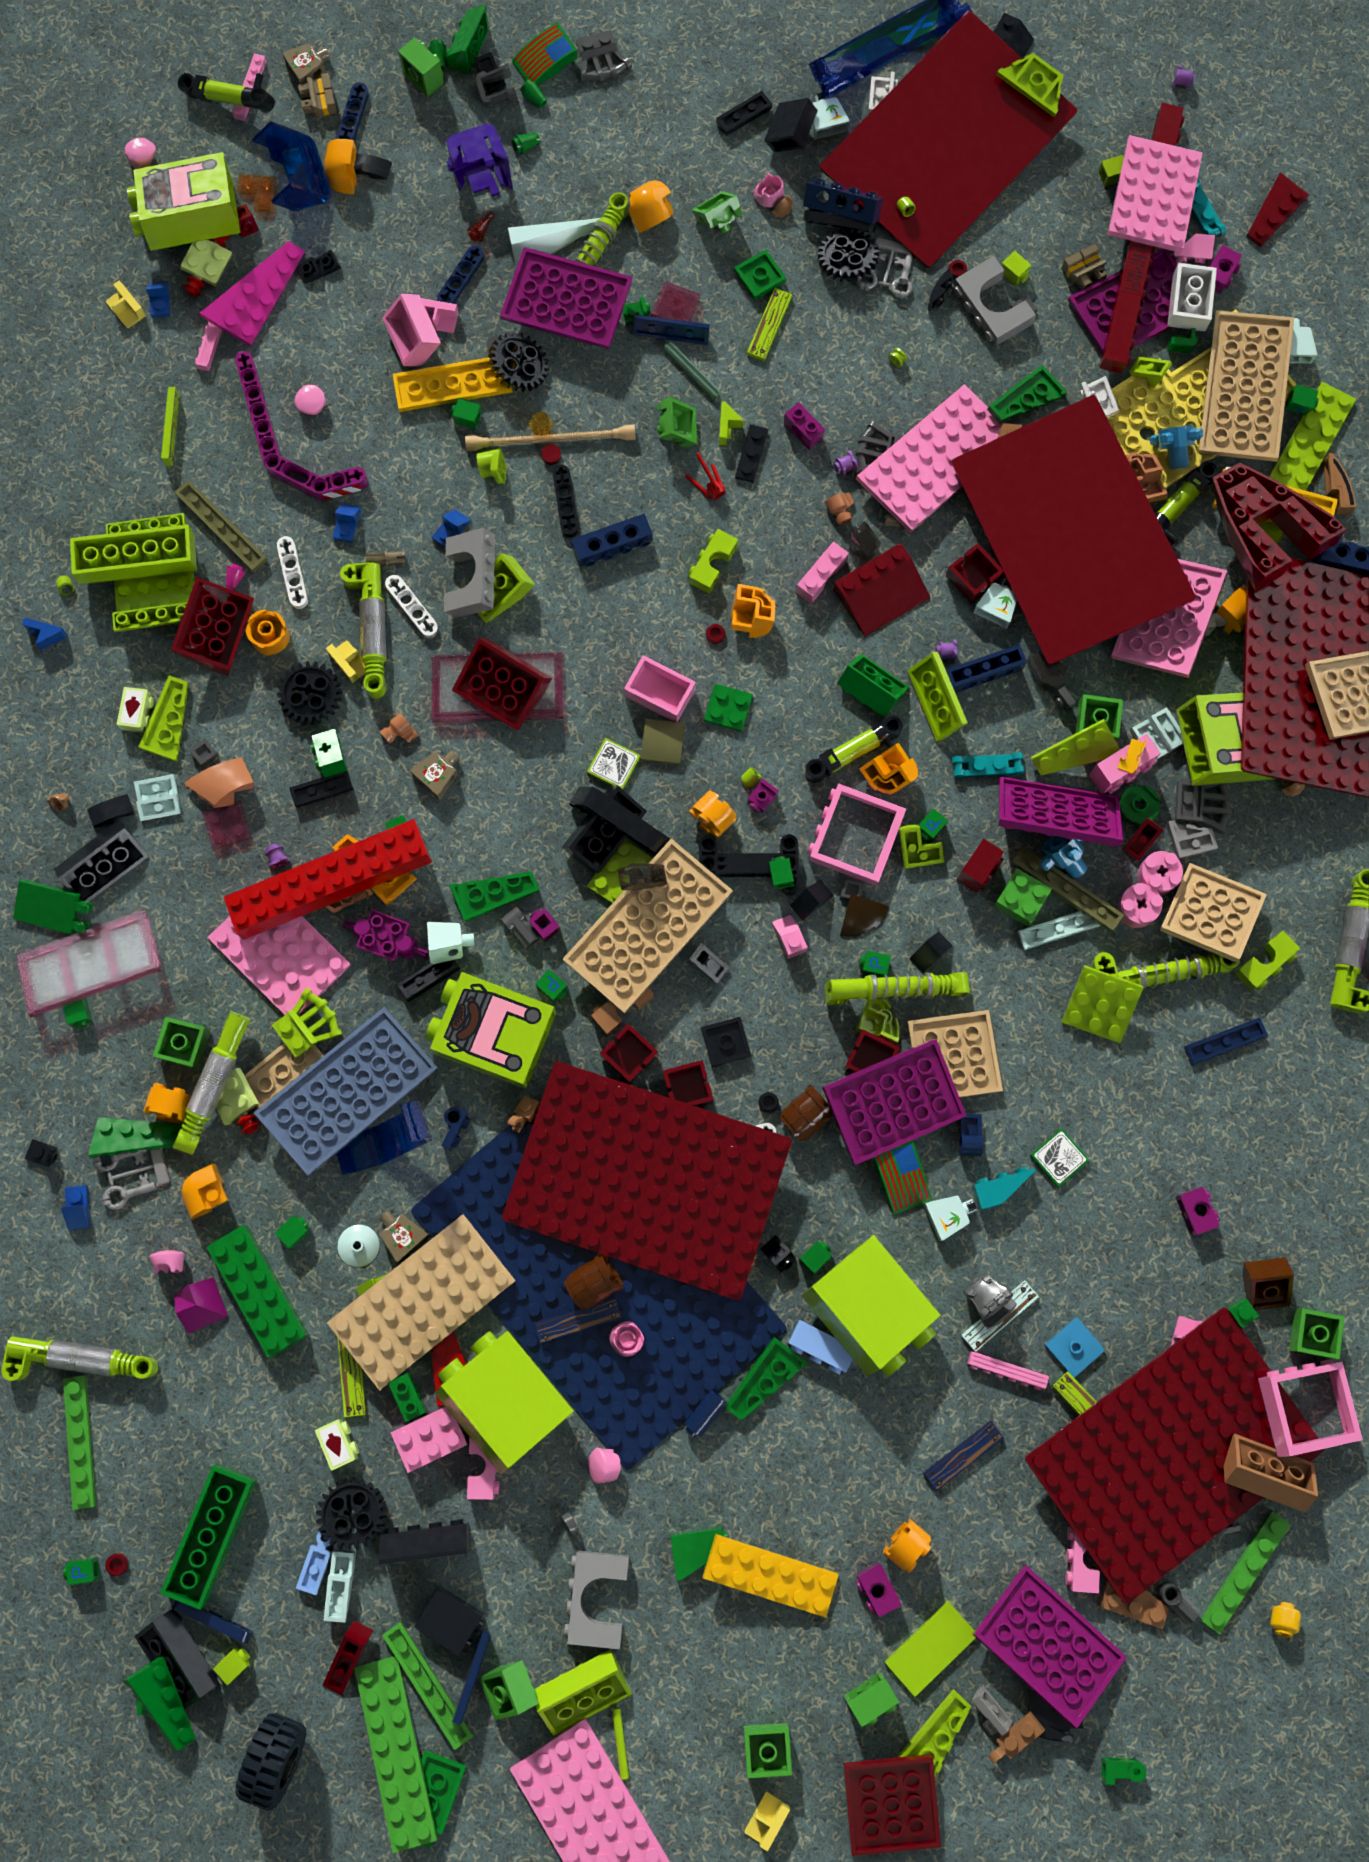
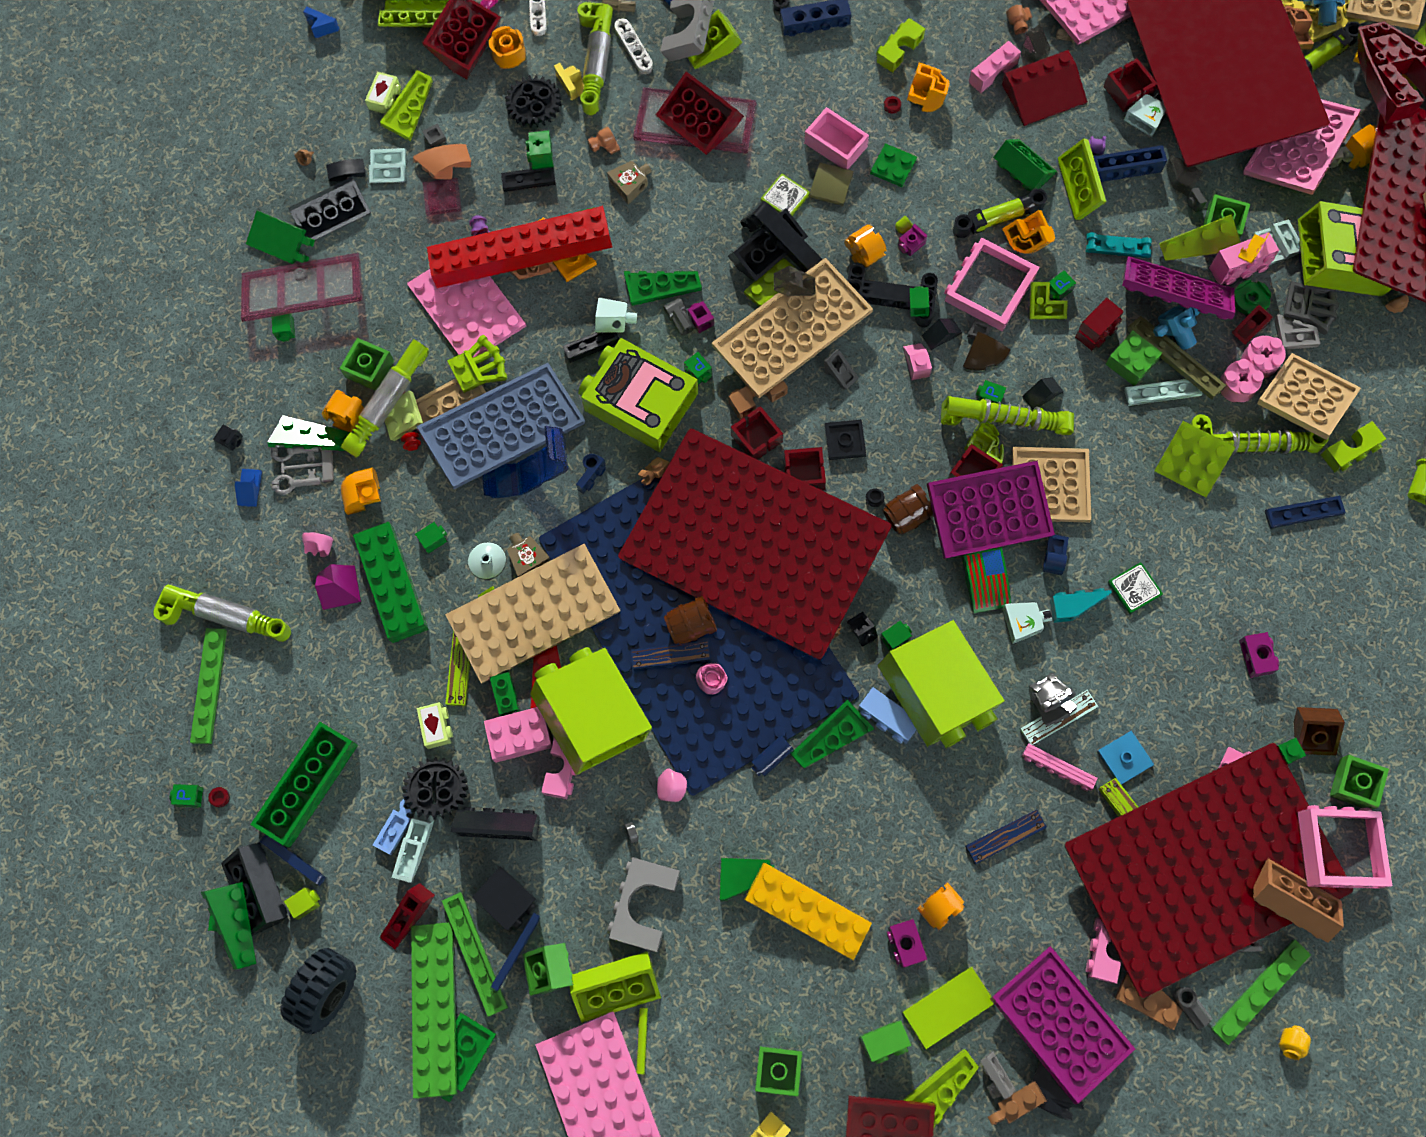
camera: 15 degrees right, 5 degrees down
(385, 937) = (560, 304): magenta piece -> none

